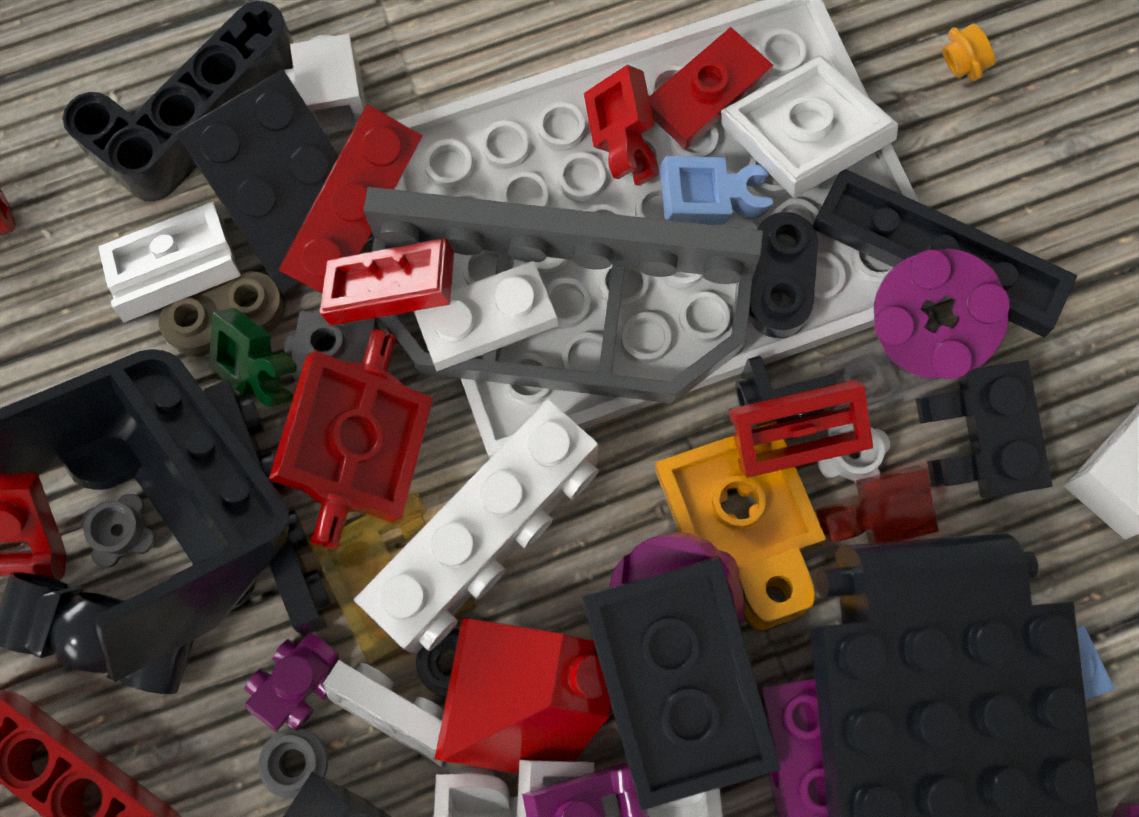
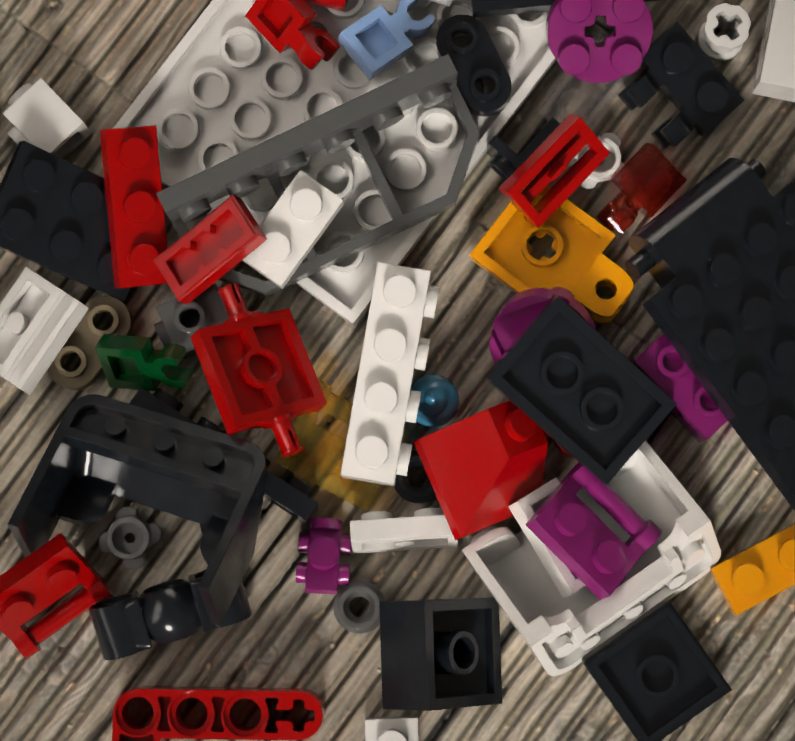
camera: 30 degrees left, 10 degrees up
(521, 592) = (438, 400): none -> dark azure plate
(1071, 402) = (724, 17): none -> white bush

